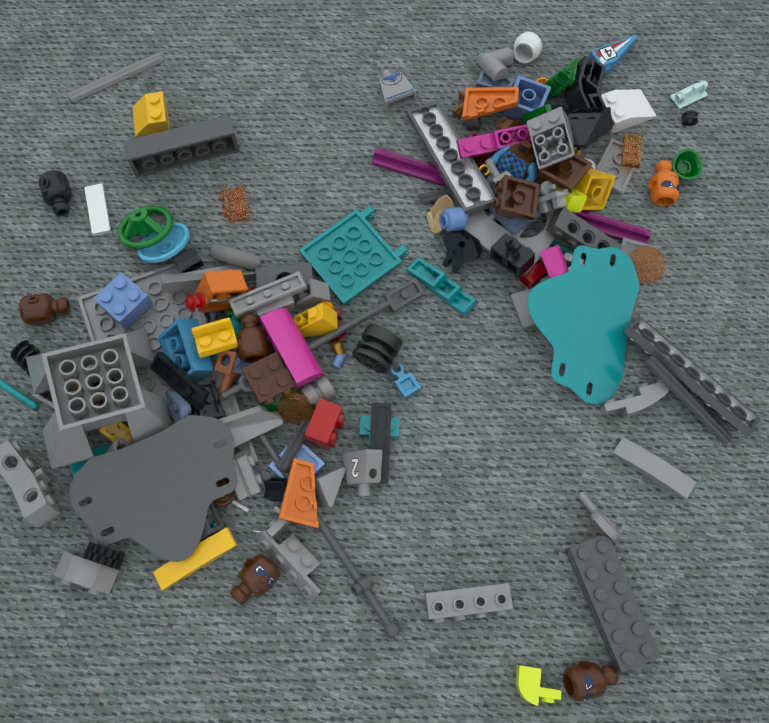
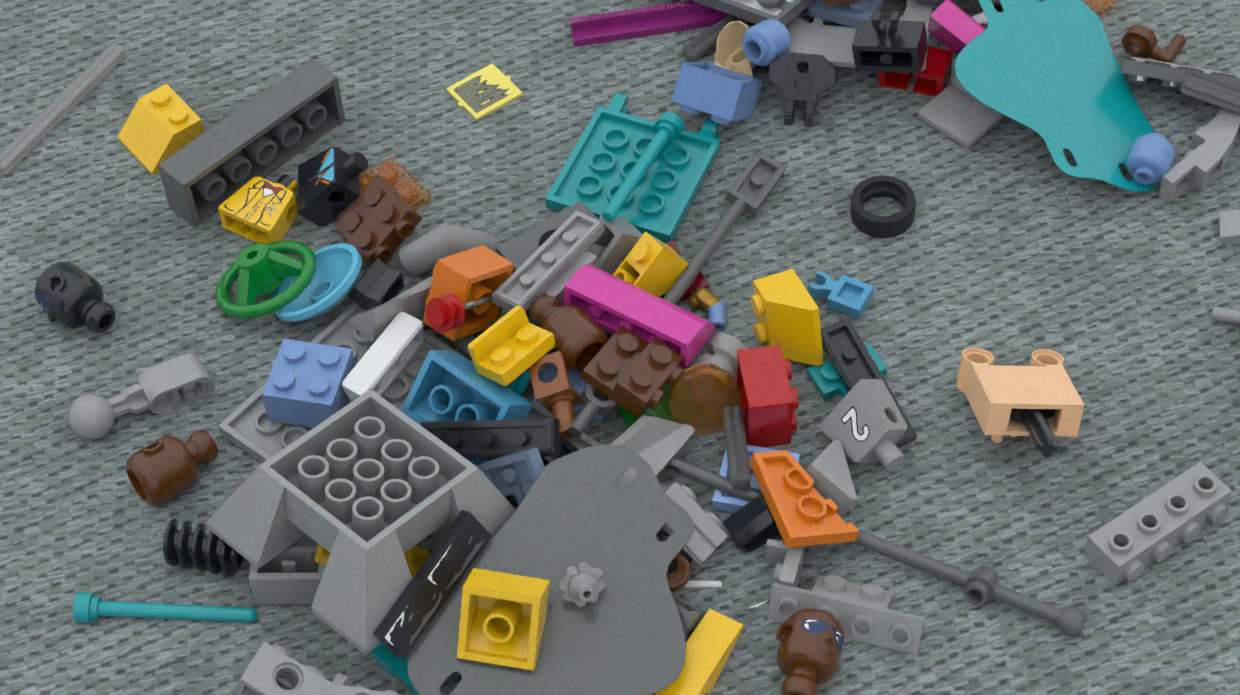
camera: 25 degrees left, 20 degrees down
(63, 262) = (156, 390): none -> light grey beam
(97, 209) = (161, 297): white tile -> none
(98, 451) = (432, 584): none -> black tile
(120, 486) = (502, 618): none -> yellow slope
(161, 307) = (385, 357): none -> white slope
(164, 490) = (582, 584): none -> light grey plant
(168, 185) = (261, 209): none -> yellow torso
(202, 189) = (329, 184): none -> black torso
(212, 223) = (378, 221): none -> reddish brown plate
(312, 169) = (484, 91): none -> piece
(362, 385) = (787, 317): none -> yellow slope
(377, 242) = (666, 129): none -> teal piece
(377, 348) = (767, 248): pearl dark grey wheel -> none
(415, 232) = (716, 91): none -> medium blue brick
(441, 286) = (814, 150): teal slope -> none
(444, 499) = (1021, 399): none -> light nougat piece
(456, 327) = (877, 225): none -> black tyre
(605, 390) = (1150, 158): none -> medium blue head
(652, 313) = (1142, 42): none -> reddish brown plate

